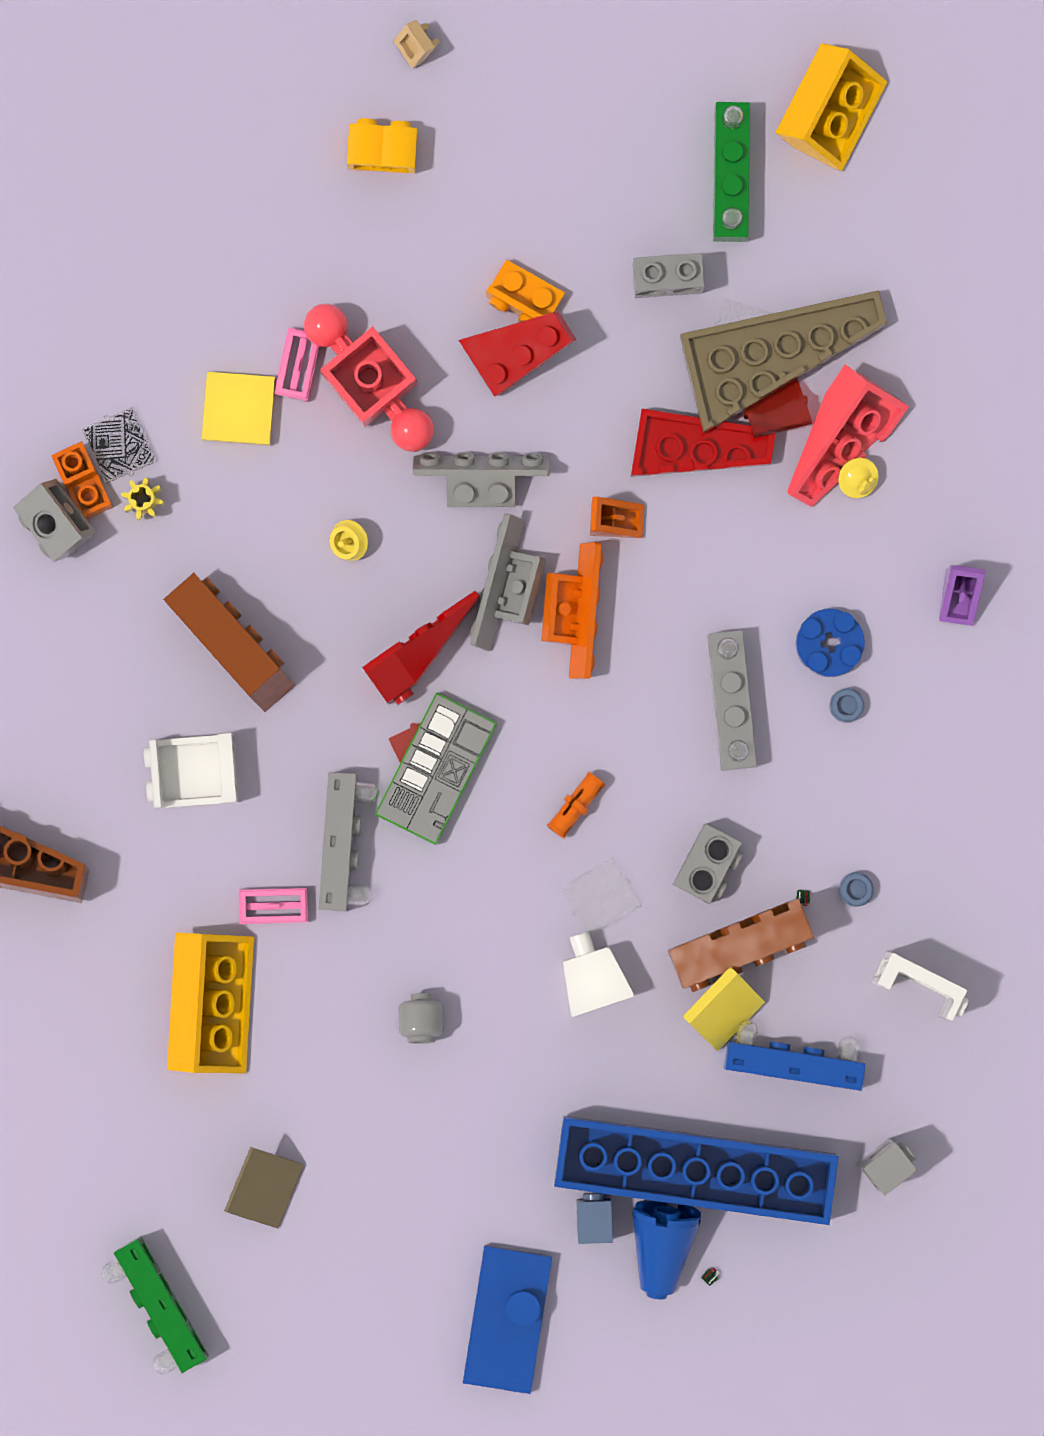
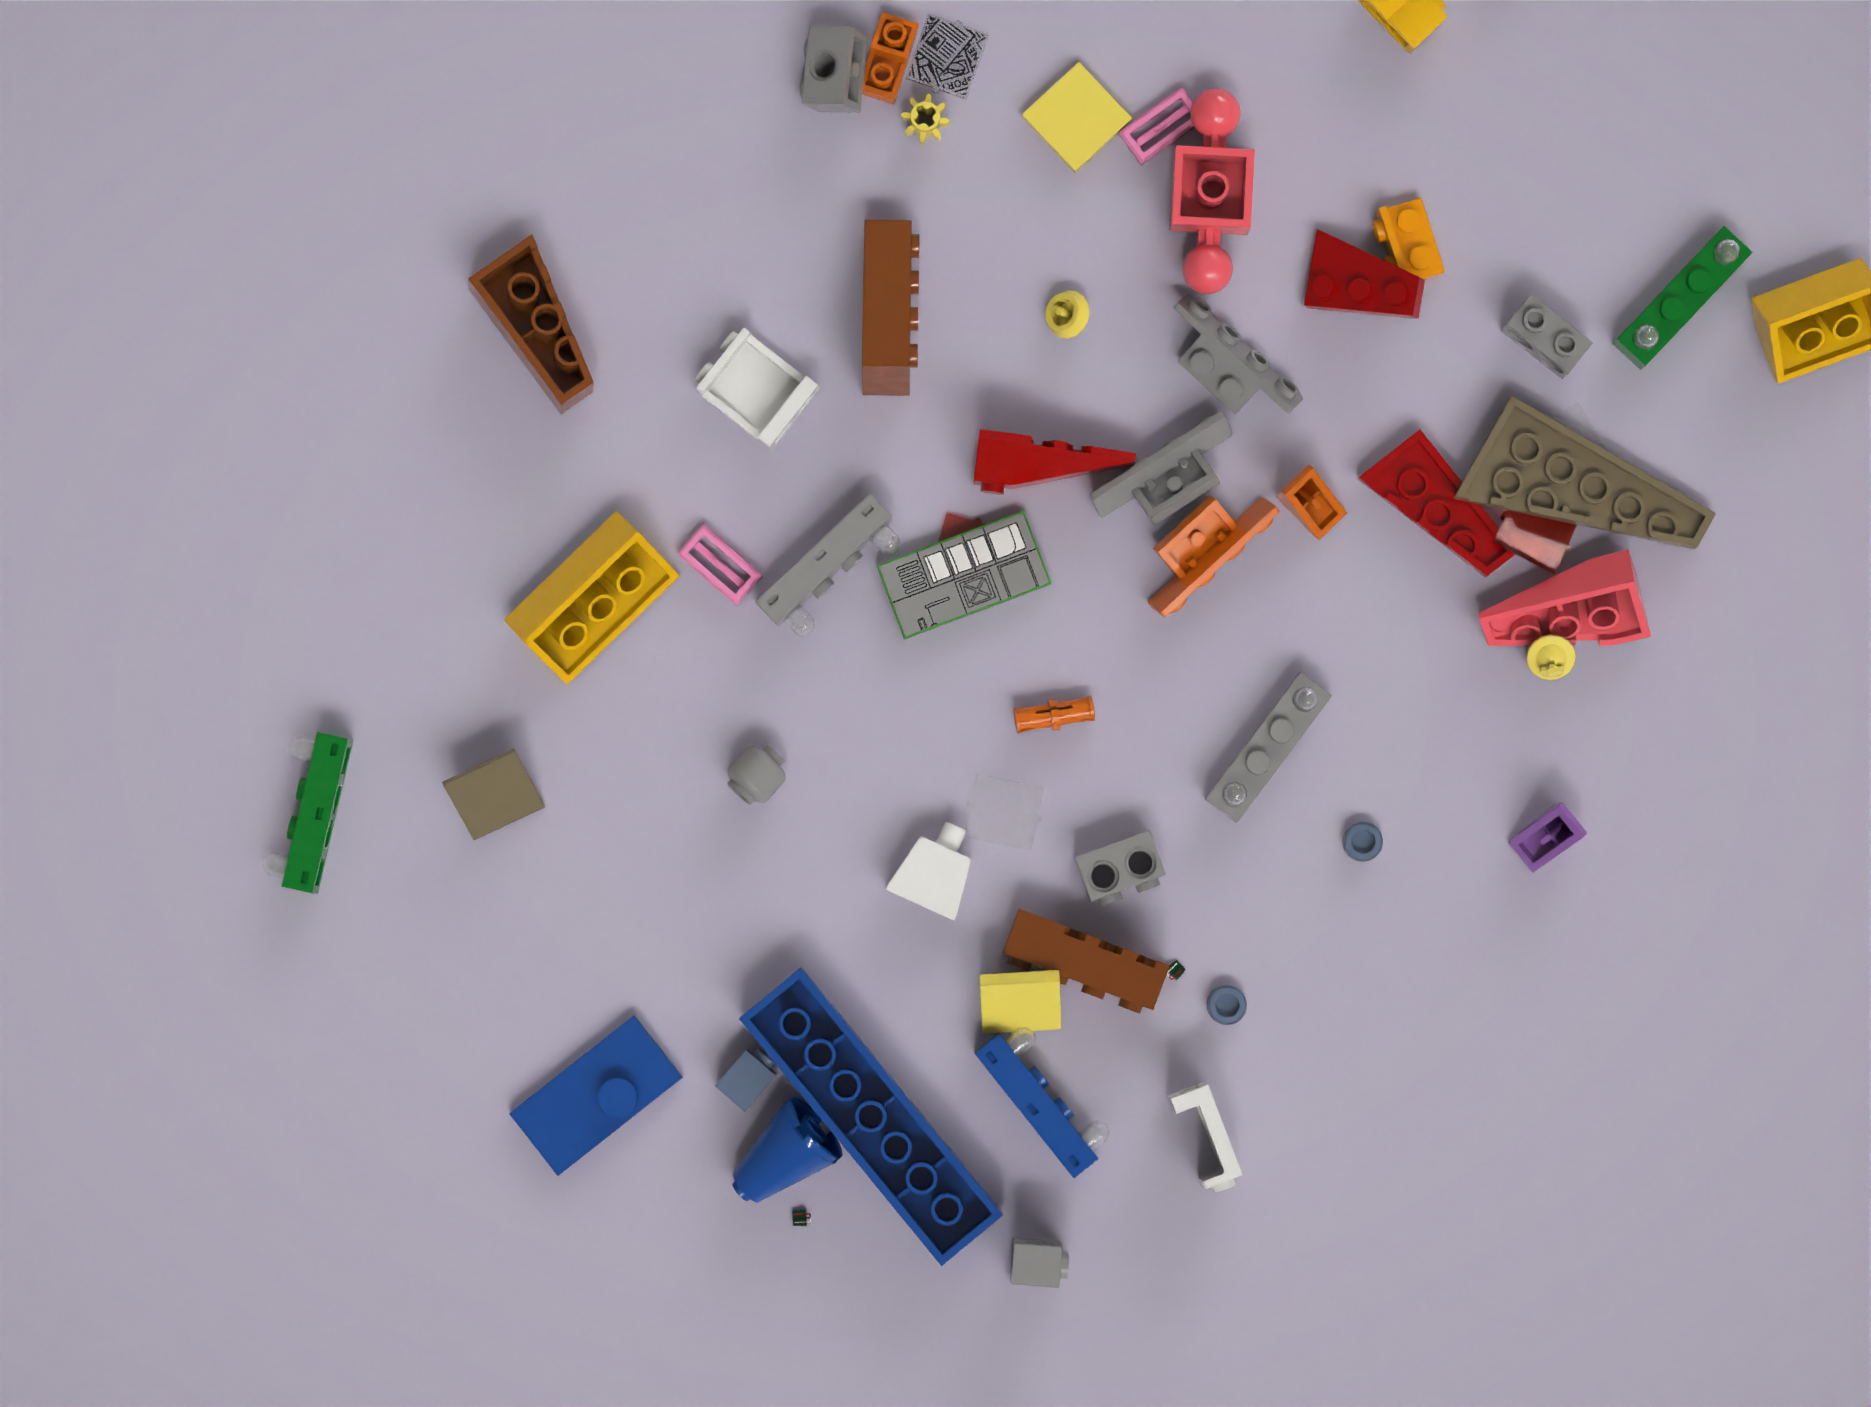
camera: 45 degrees right, 0 degrees up
(841, 626) = (1375, 780): blue plate -> none

